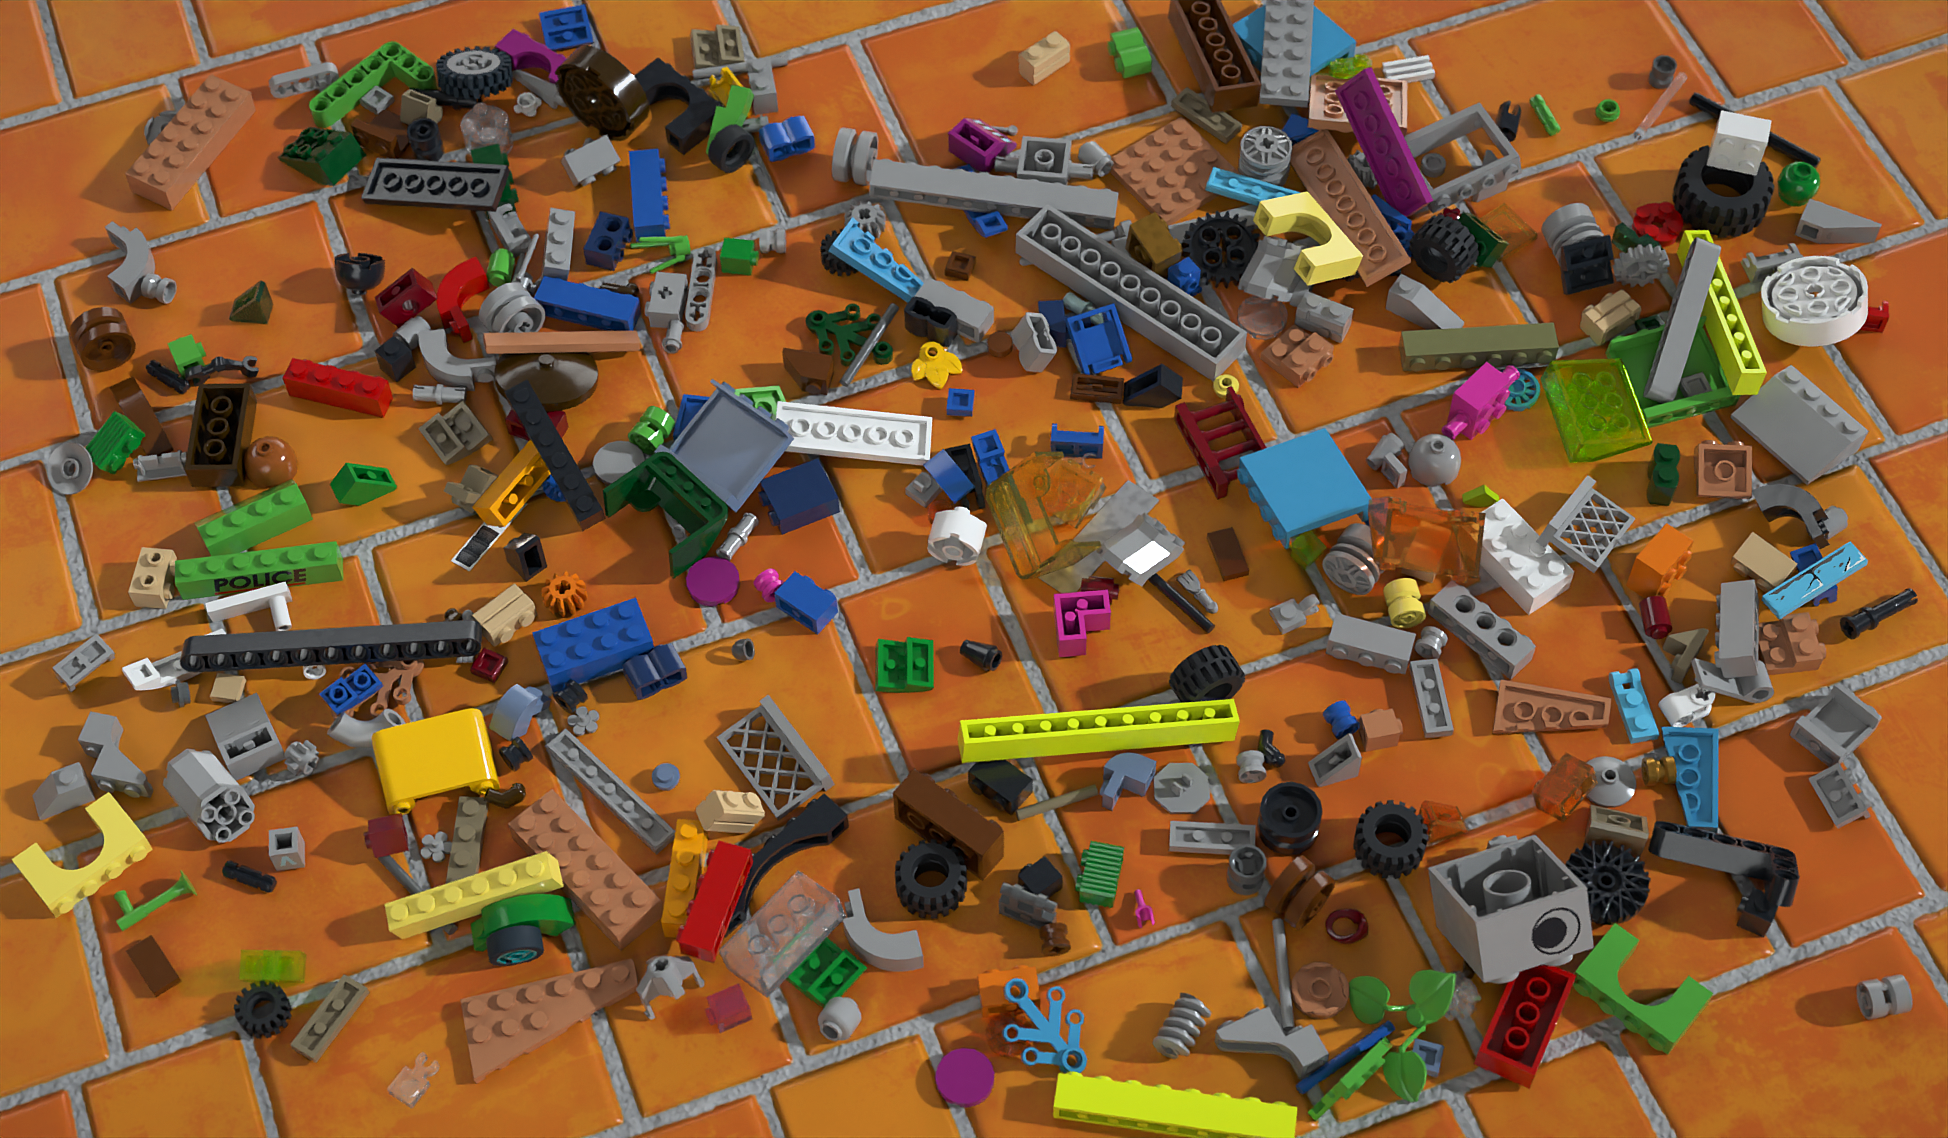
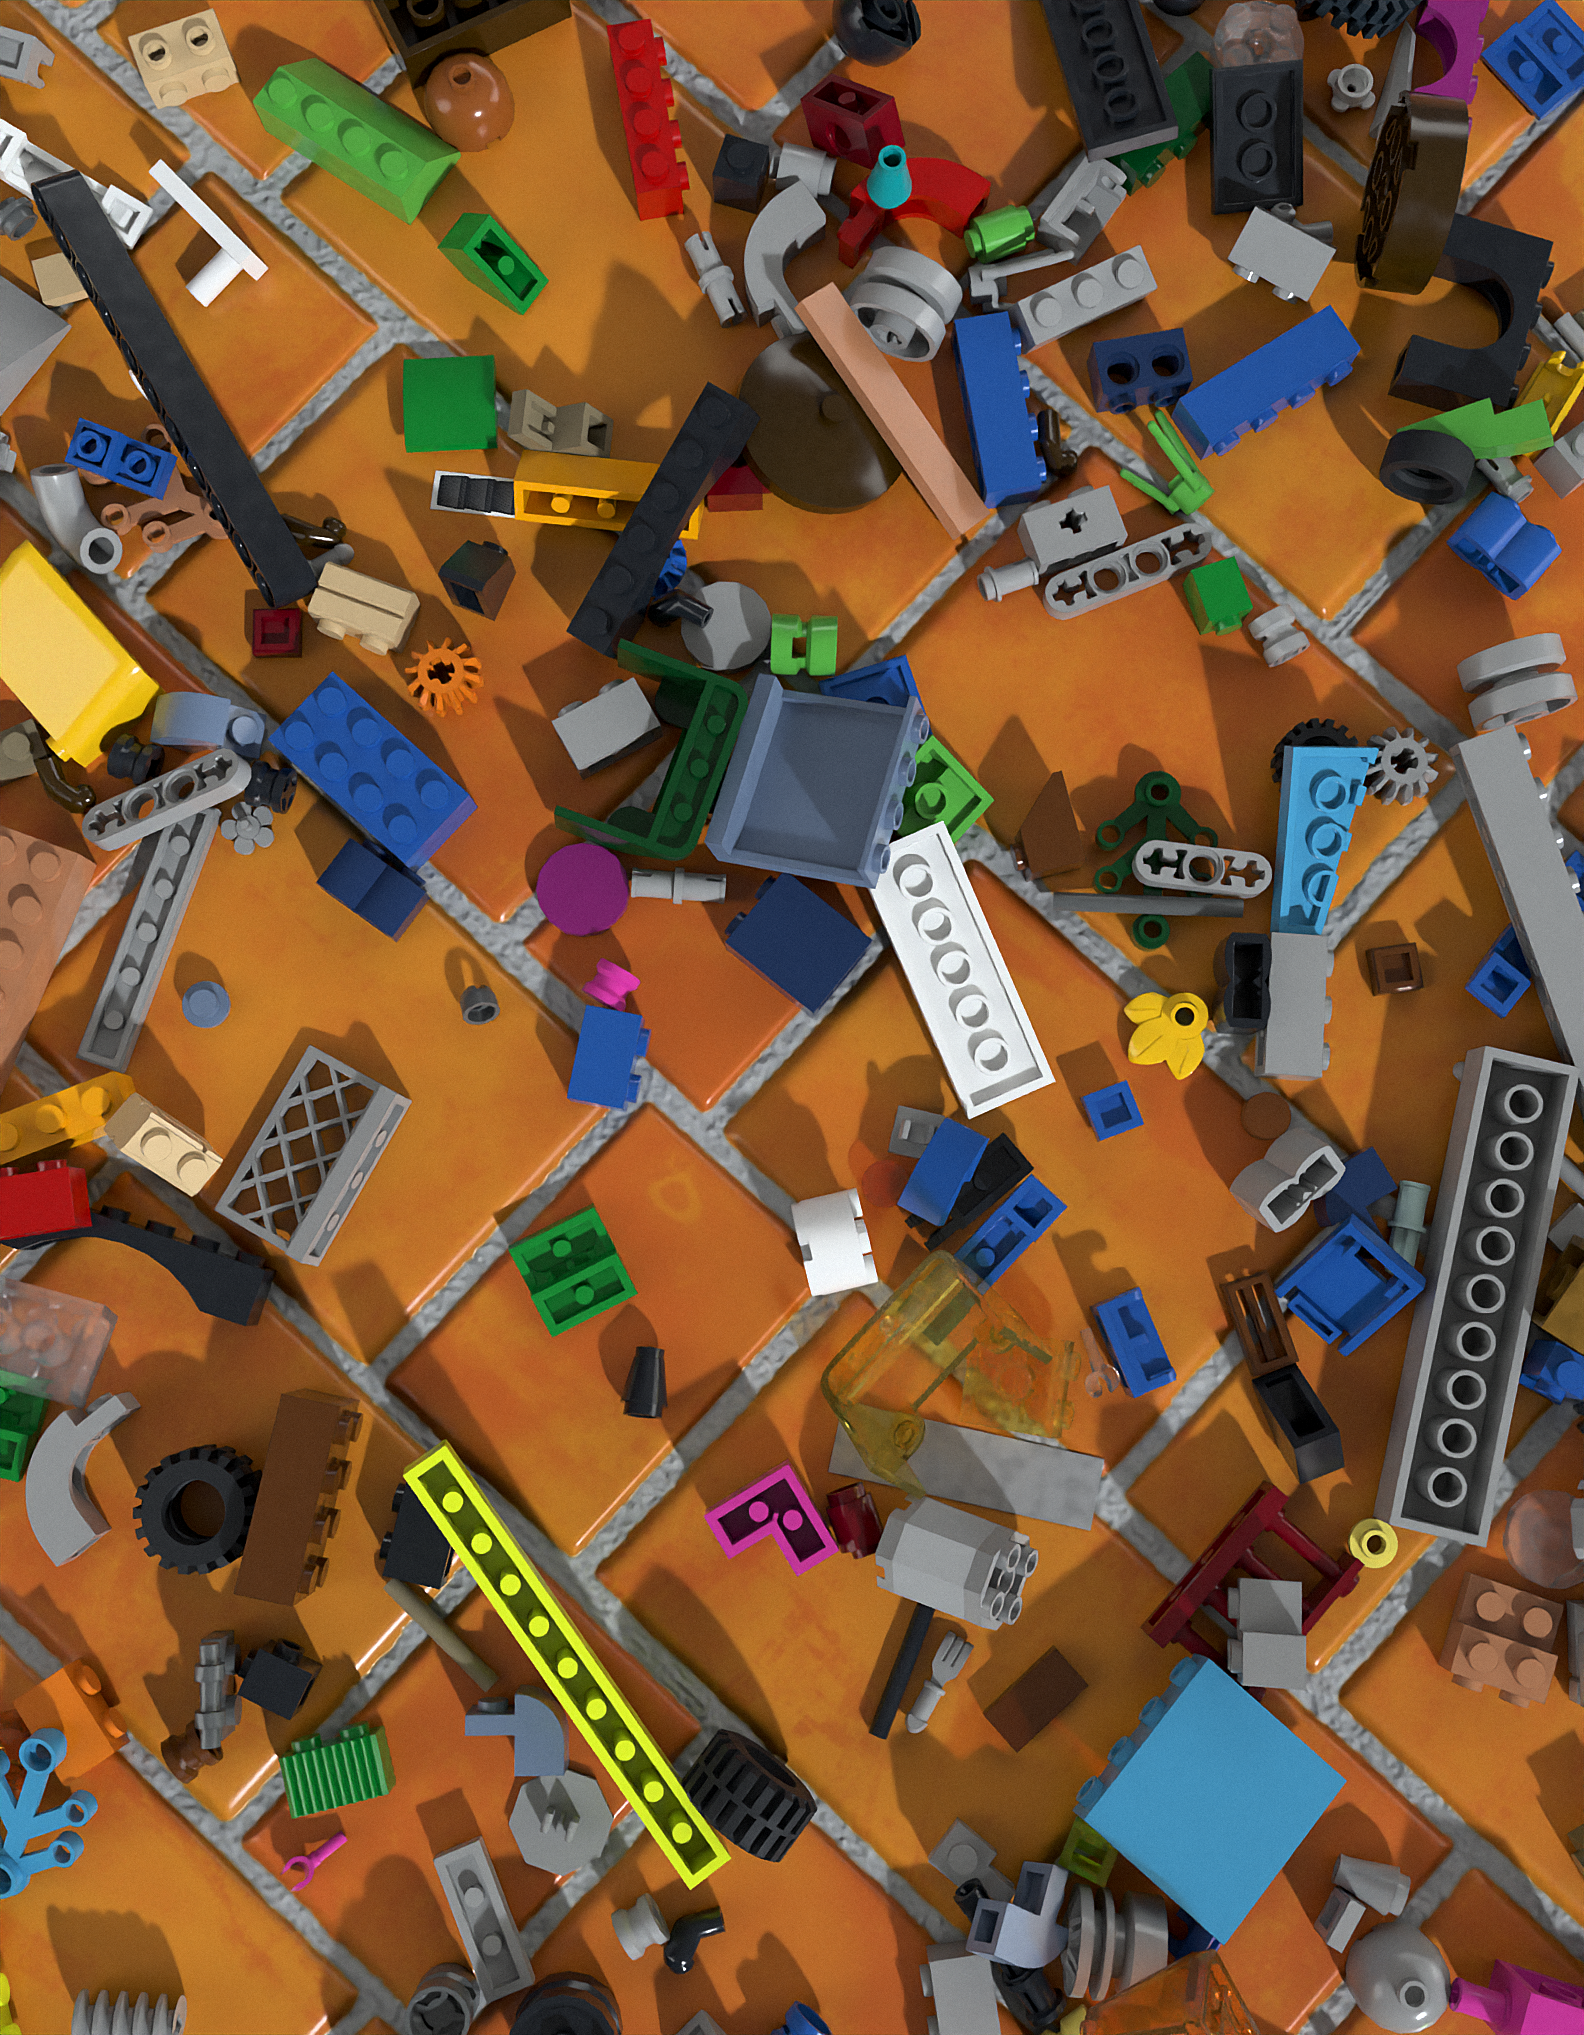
camera: 60 degrees right, 25 degrees up
(258, 569) = (266, 201): bright green brick -> none
(422, 535) = (450, 404): none -> green slope
(448, 290) = (890, 178): none -> teal cone
(455, 433) = (659, 345): dark tan slope -> none
(528, 146) = (1256, 136): none -> black tile
(543, 743) = (167, 809): none -> light grey beam
(595, 476) = (678, 604): none -> black arm
(637, 533) = (607, 727): none -> light grey brick
(865, 324) = (1234, 885): none -> light grey beam
(1241, 428) = (1269, 1634): none -> light grey brick
(1325, 587) = (1027, 1930): none -> sand blue brick
(1354, 605) = (1031, 1985): none -> black pin

